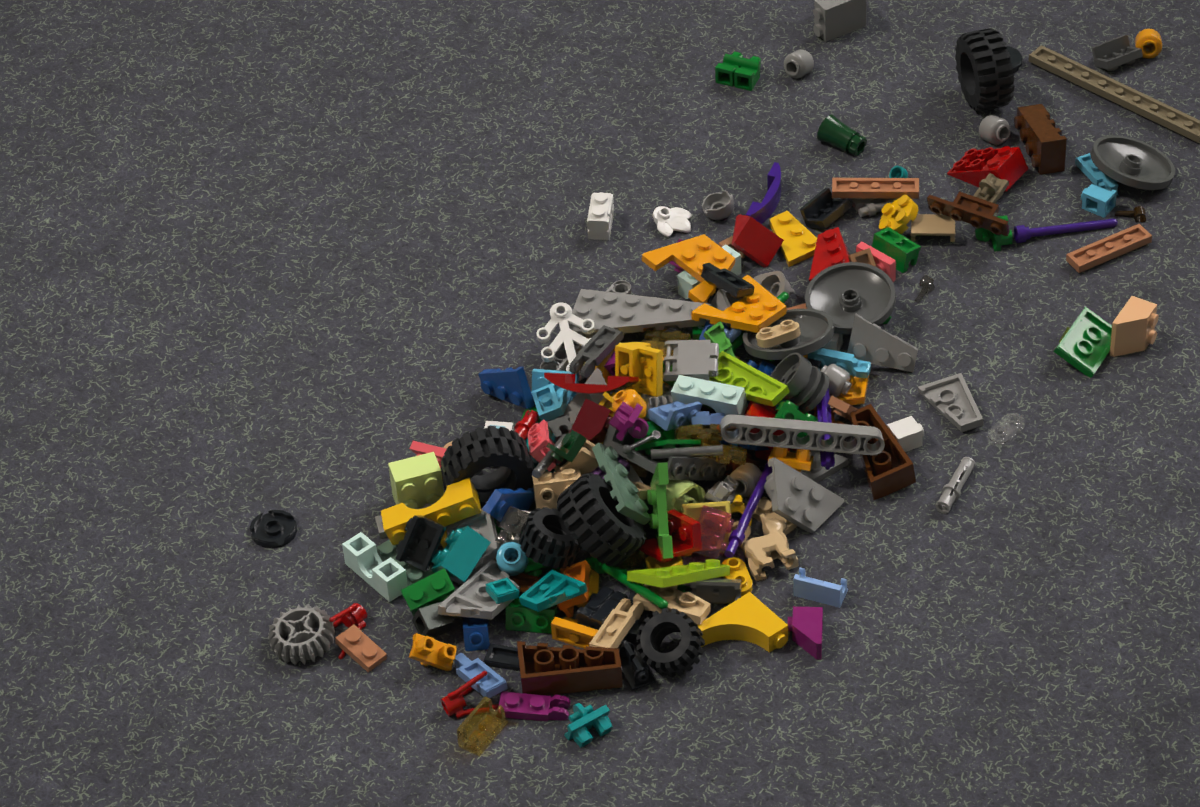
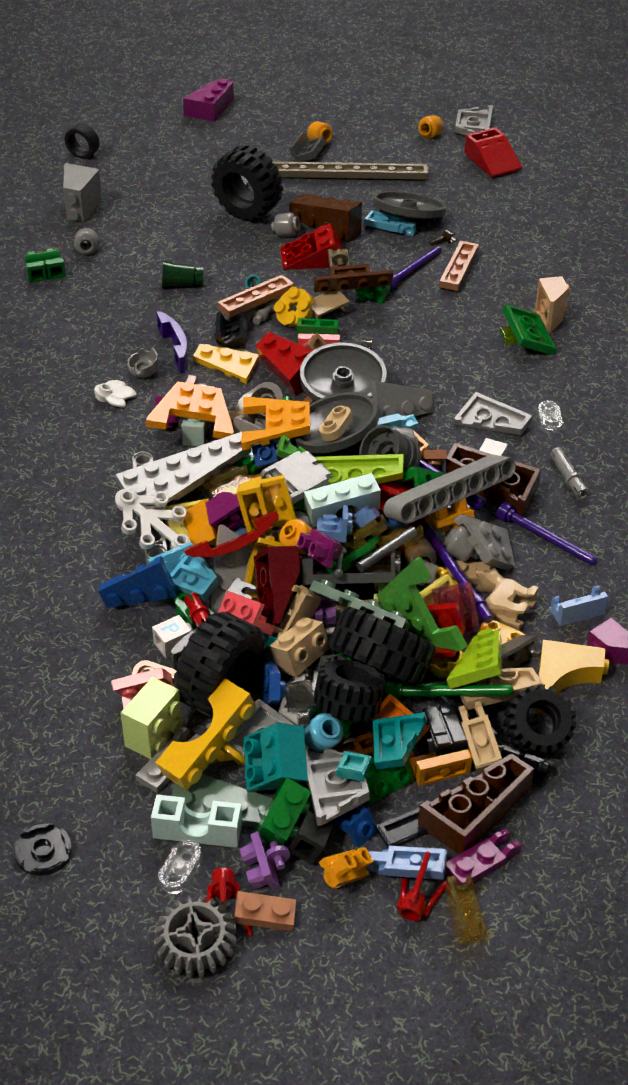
camera: 45 degrees left, 0 degrees up
(339, 589) = (179, 869): none -> clear plate
(393, 617) = (267, 859): none -> medium lavender hips
(420, 542) = (227, 768): black bracket -> none
(546, 461) = (272, 619): flat silver bar -> none
(570, 447) = (288, 599): dark green bracket -> none
(585, 719) = (546, 839): teal hips -> none
(595, 351) = (193, 512): dark grey hinge -> none
(600, 216) = (54, 415): white brick -> none
(727, 281) = (241, 405): black hinge -> none
(755, 240) = (208, 370): red slope -> none
(861, 487) = (508, 513): none -> dark purple piece
(1098, 200) = (413, 238): medium azure brick -> none

